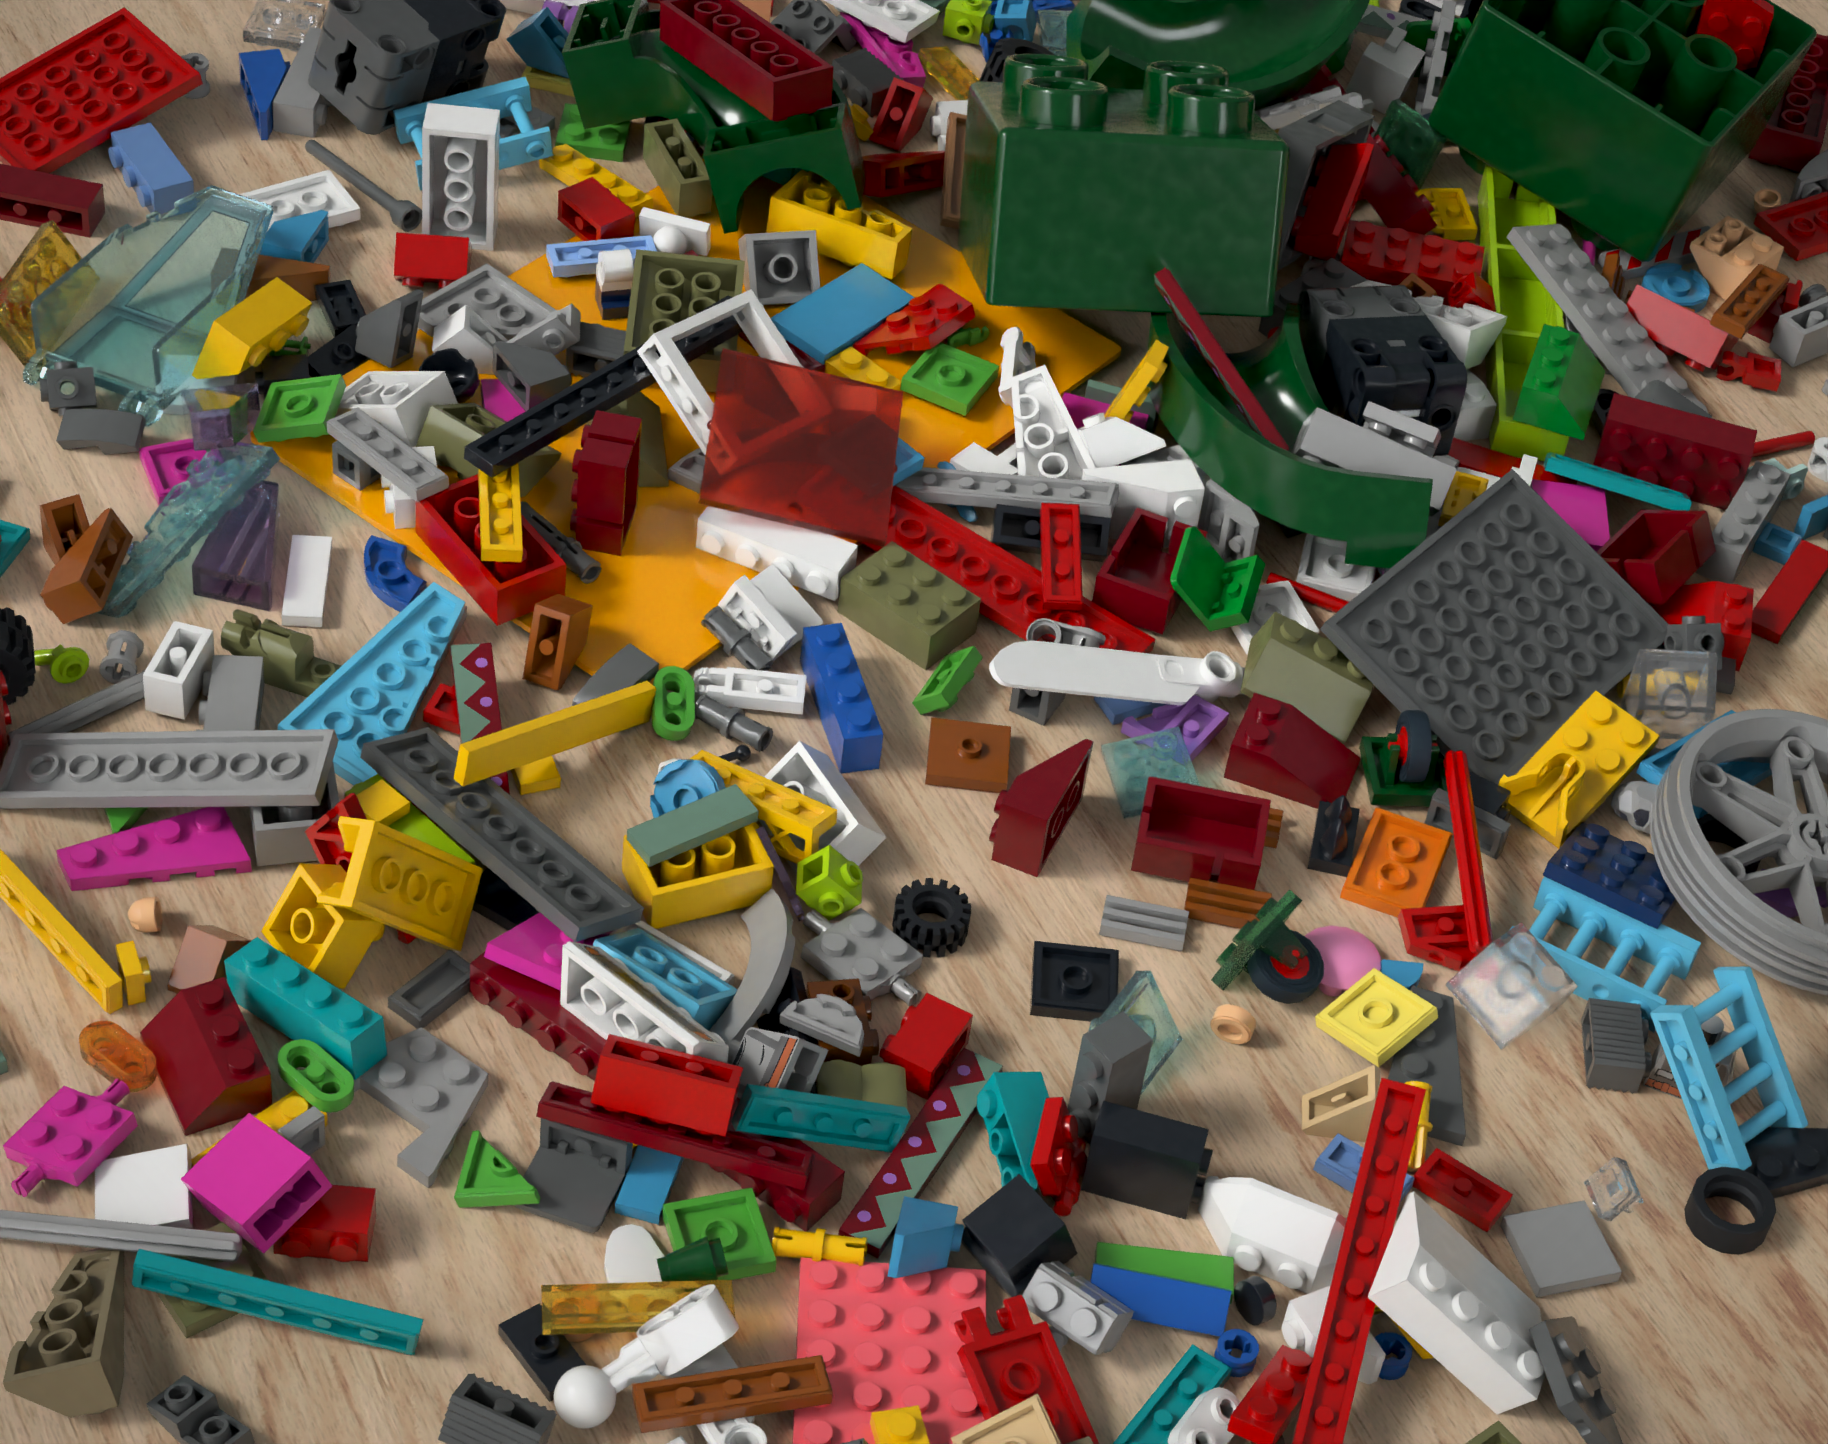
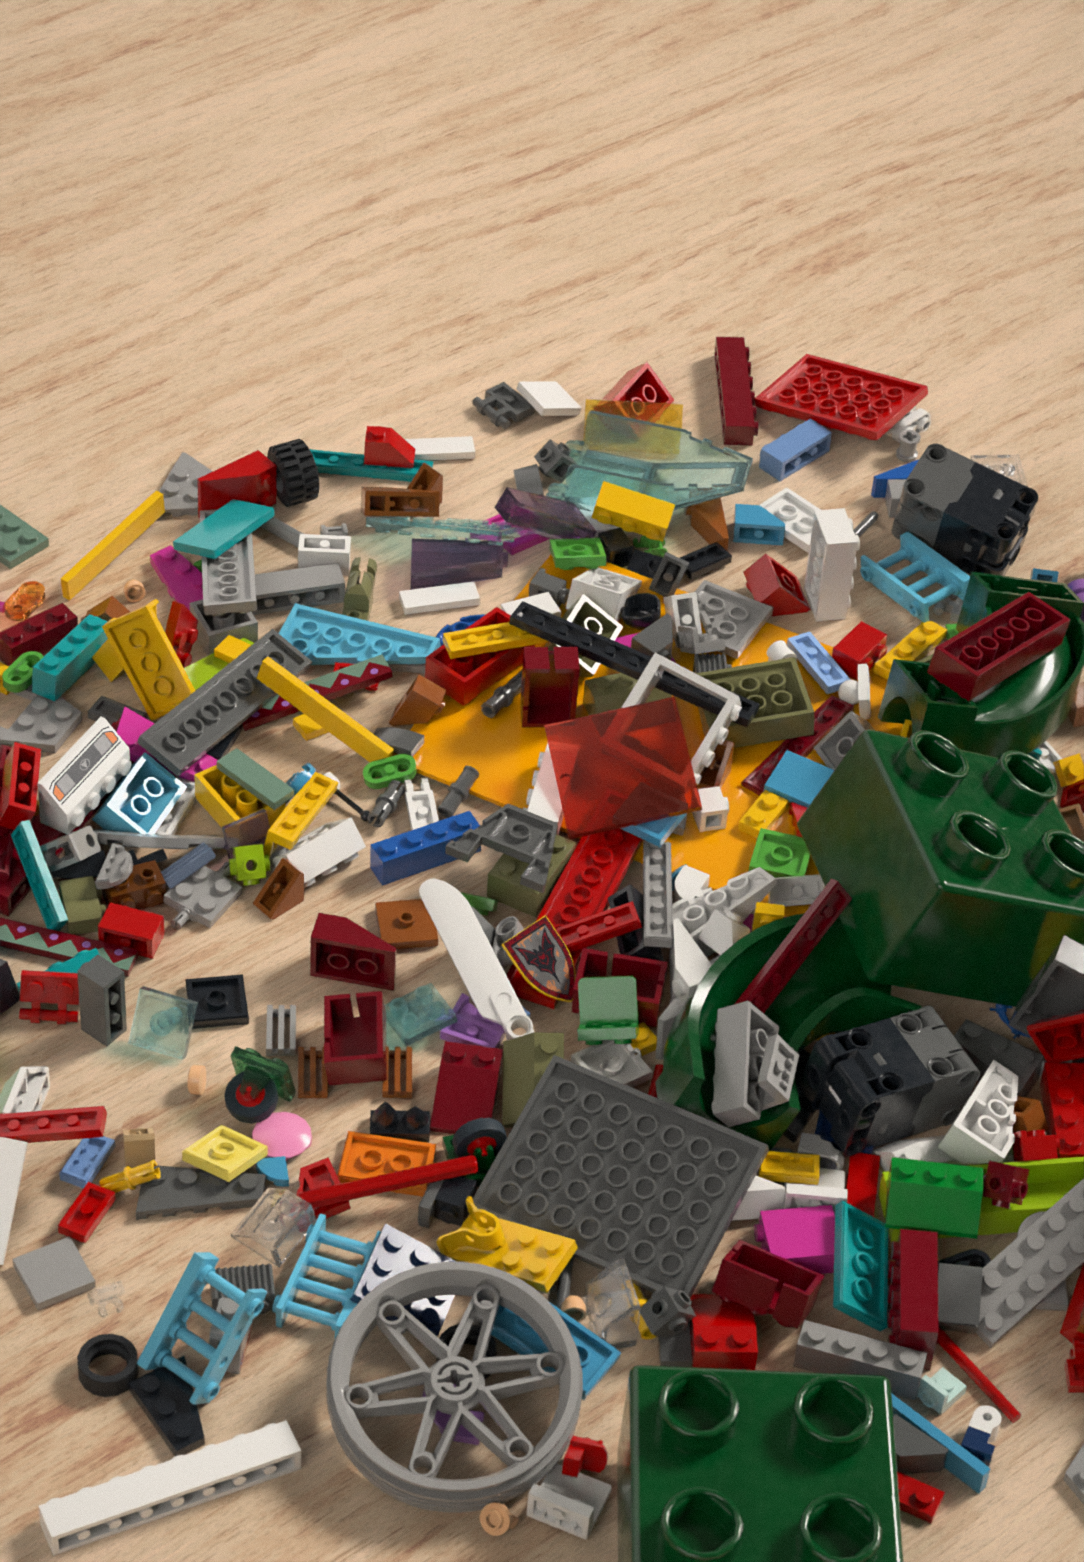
camera: 80 degrees right, 0 degrees up
(65, 663) = (319, 514): lime plate -> none
(85, 761) = (223, 528): none -> teal tile
(133, 972) = (84, 591): yellow plate -> none
(387, 454) = (533, 586): light grey tile -> none
(769, 611) = (487, 793): white bracket -> none
(812, 918) = (188, 865): none -> sand blue tile
(884, 860) = (281, 891): none -> dark orange slope
(893, 577) = (514, 834): none -> dark grey wing
(936, 900) = (248, 932): black tyre -> none
(1109, 616) = (543, 960): none -> shield
(1147, 1160) = (53, 1032): black brick -> none
(1549, 310) = (1005, 1184): none -> dark red brick
(1668, 732) = (574, 1307): none -> light nougat hinge

